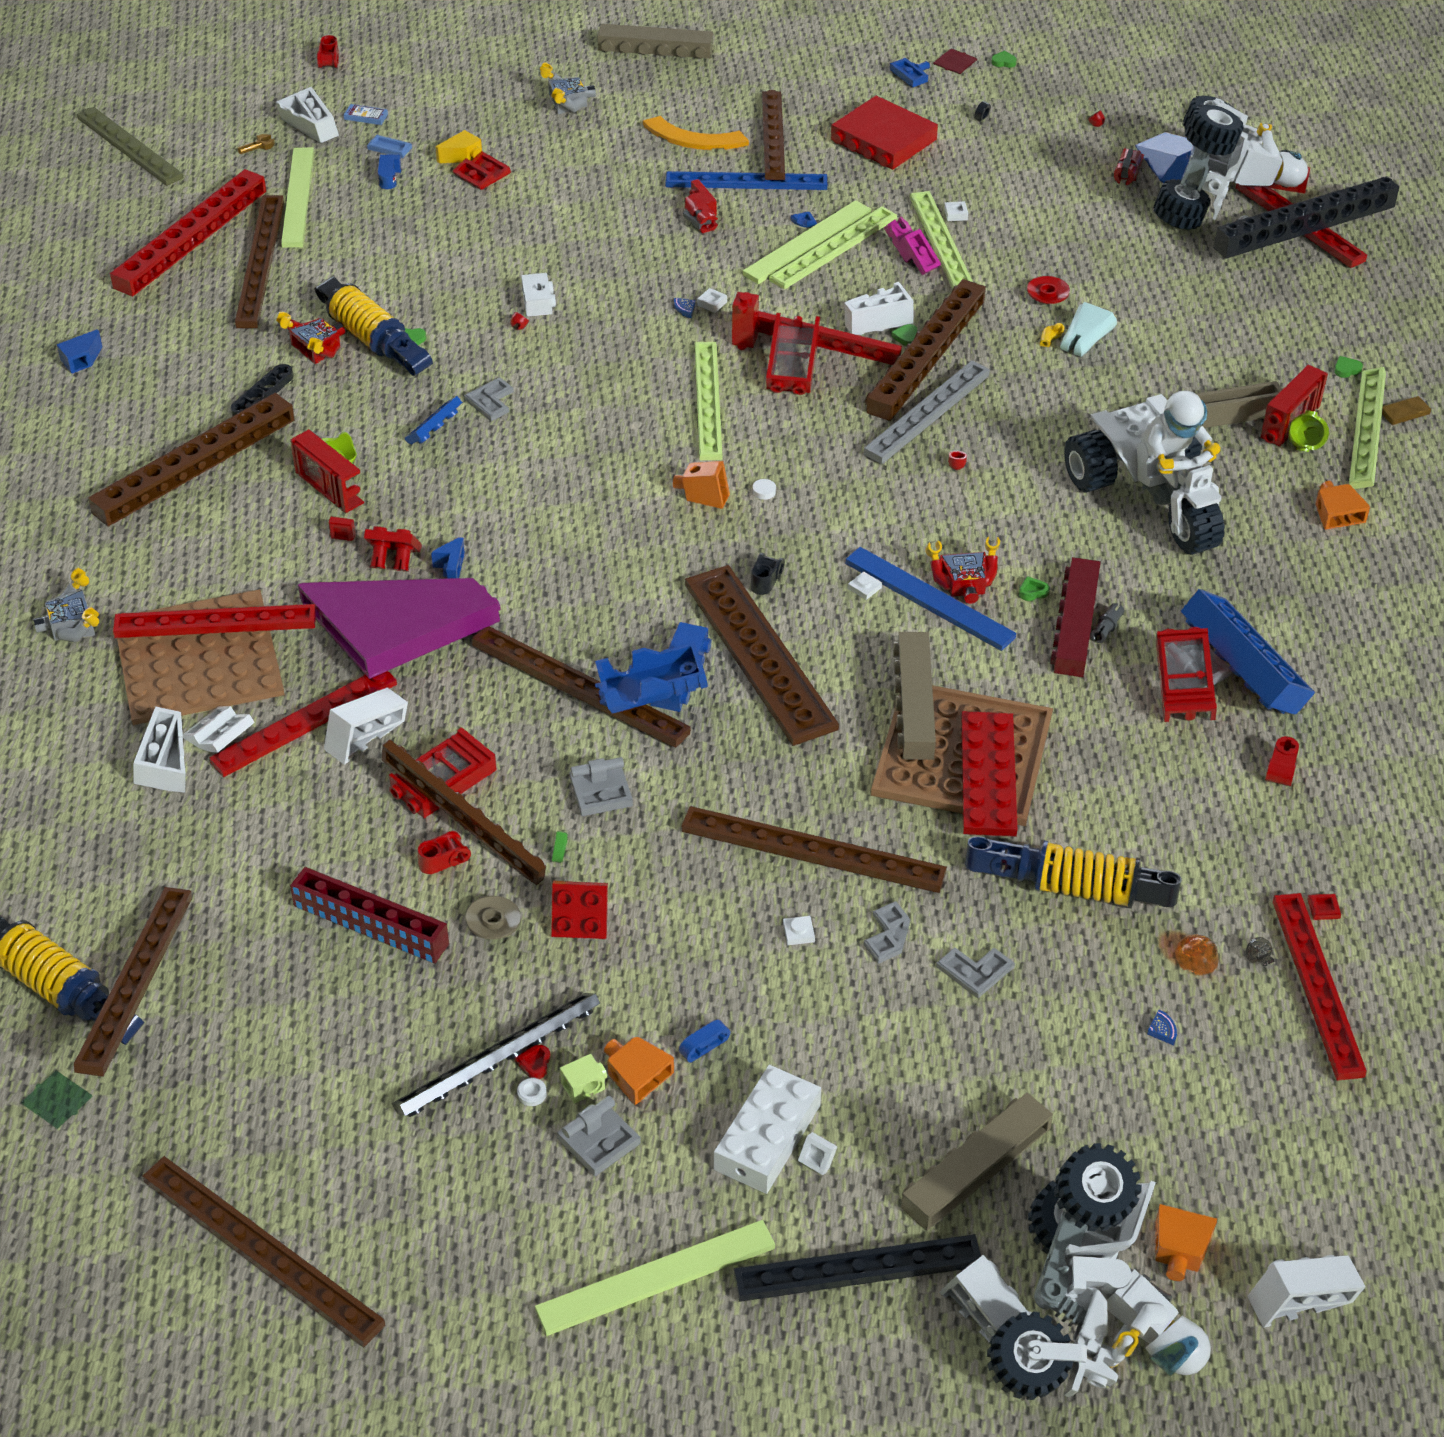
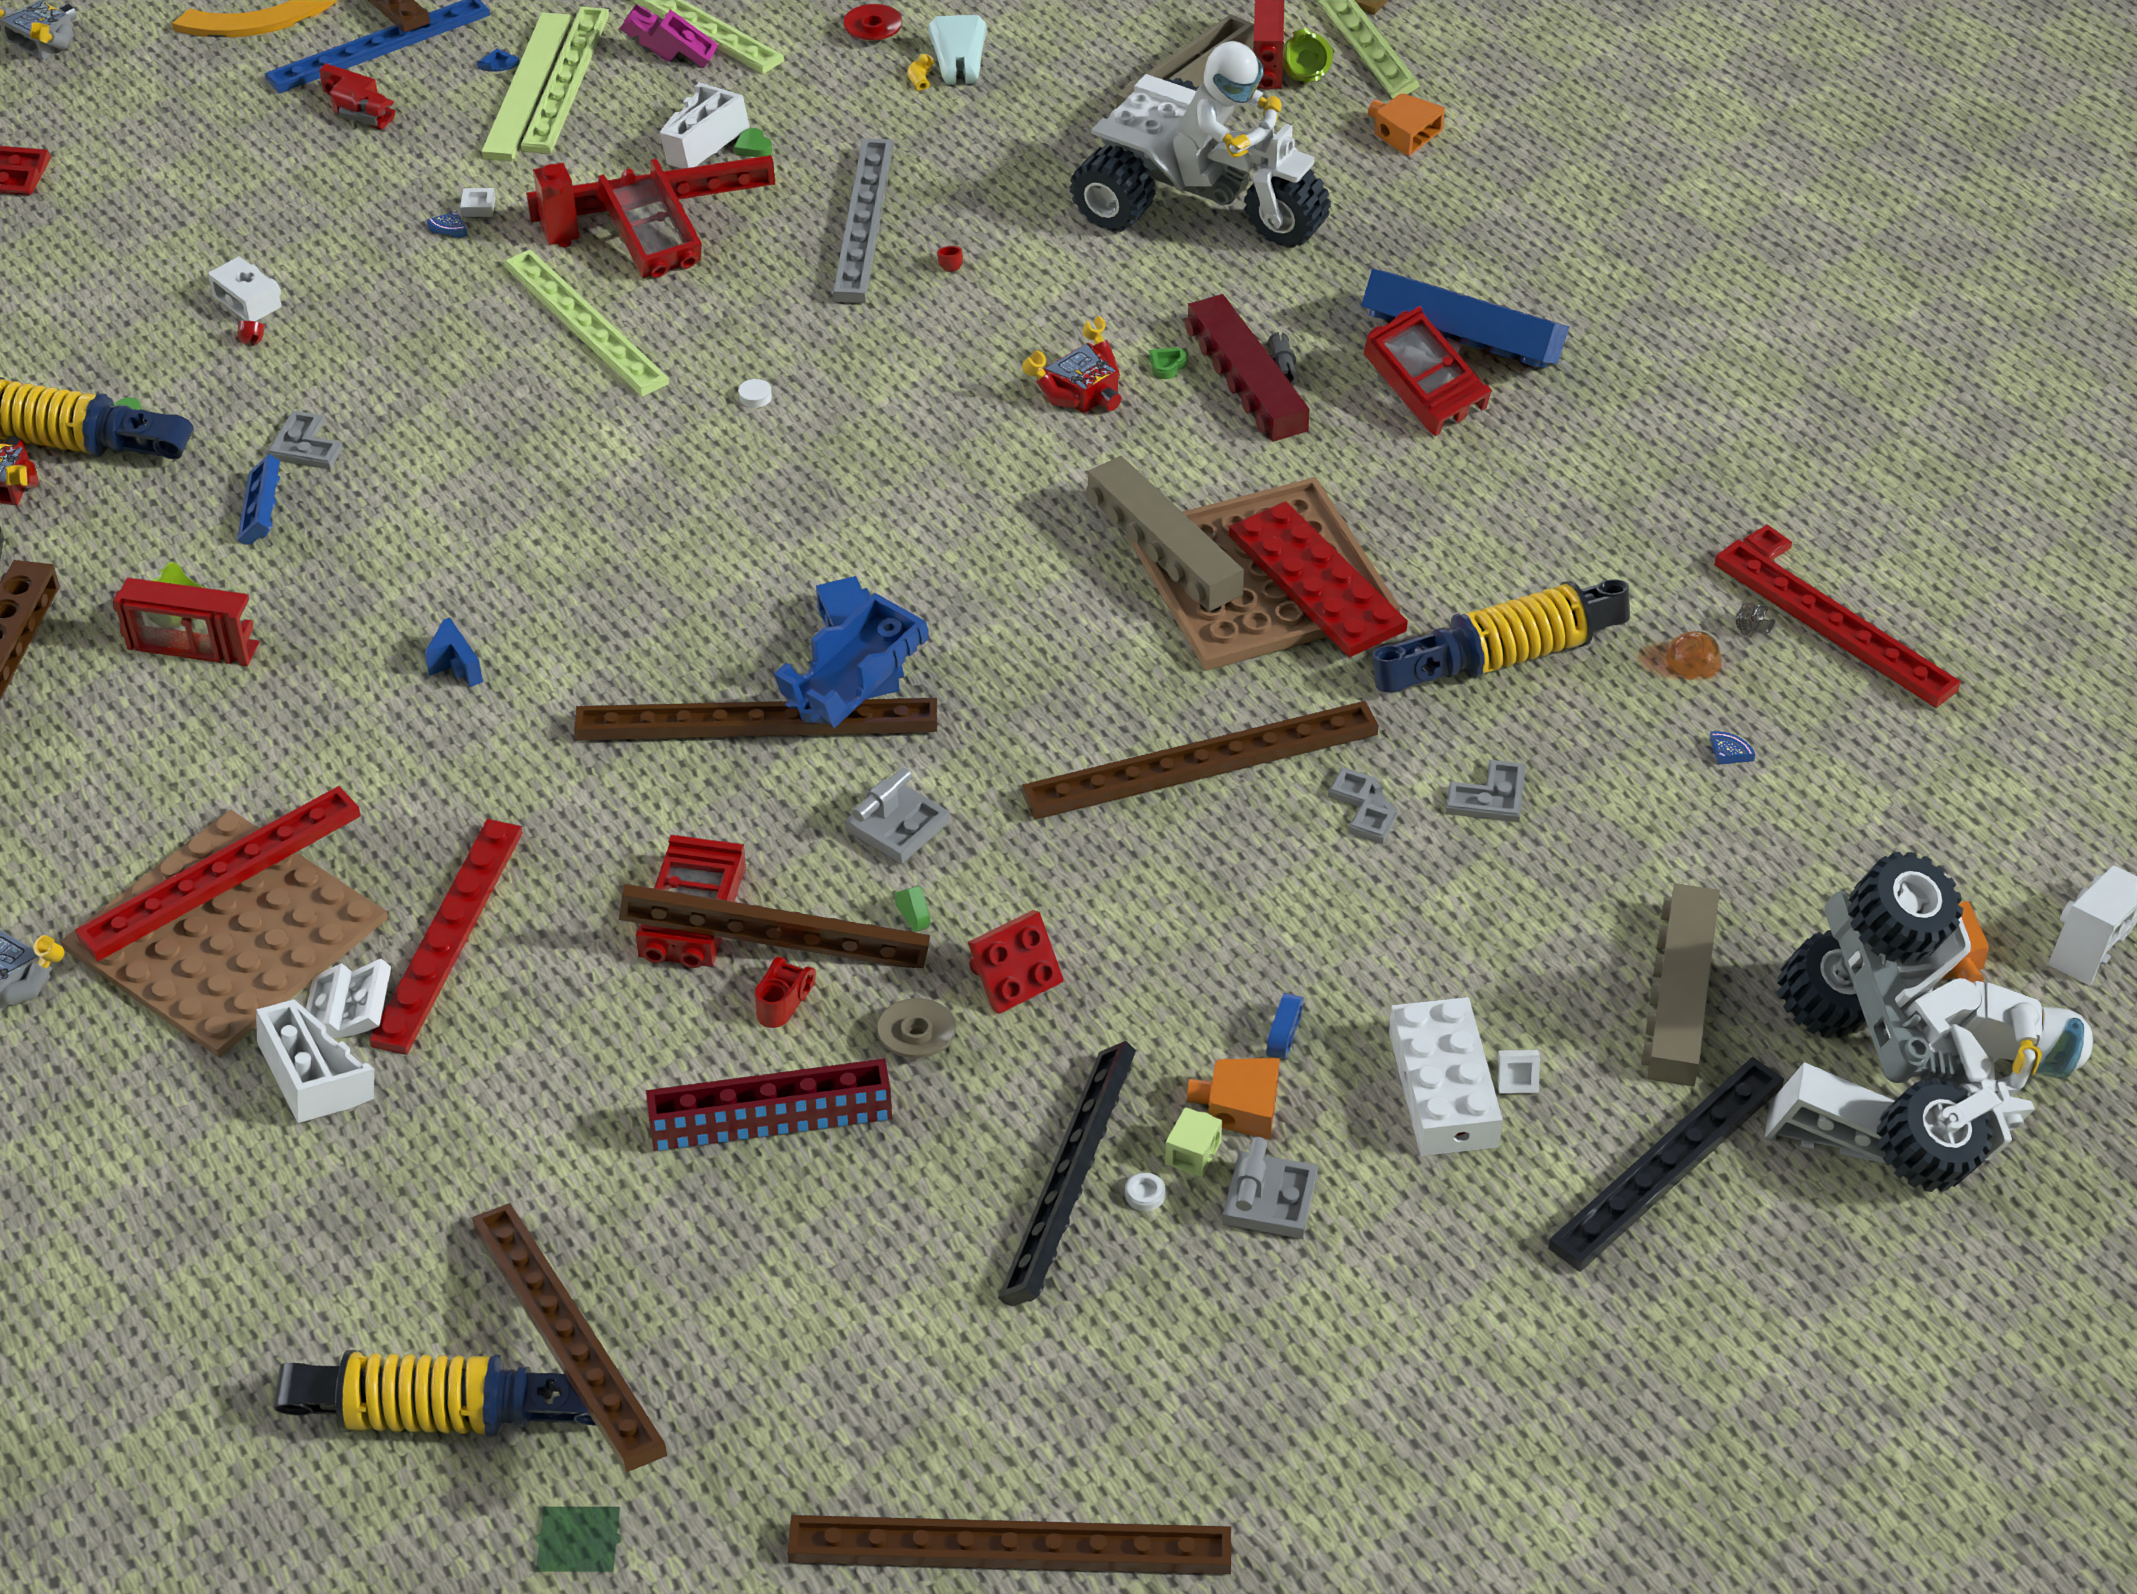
camera: 35 degrees left, 0 degrees up
(342, 528) = (269, 684): red tile -> none
(361, 721) = (533, 895): white wedge -> none
(399, 619) = (457, 756): magenta slope -> none
(401, 541) = (347, 667): red plate -> none
(534, 1061) = (1116, 1158): red tile -> none
(654, 1277) = (1468, 1304): yellowish green tile -> none
(704, 483) = (685, 416): orange torso -> none
(761, 655) = (935, 578): reddish brown plate -> none
(765, 573) = (853, 486): black piece -> none
(798, 930) = (1268, 854): white plate -> none
(864, 585) = (977, 446): white plate -> none
(925, 350) = (794, 151): reddish brown brick -> none
(931, 599) = (1063, 425): blue tile -> none
(1283, 761) = (1599, 415): red piece -> none

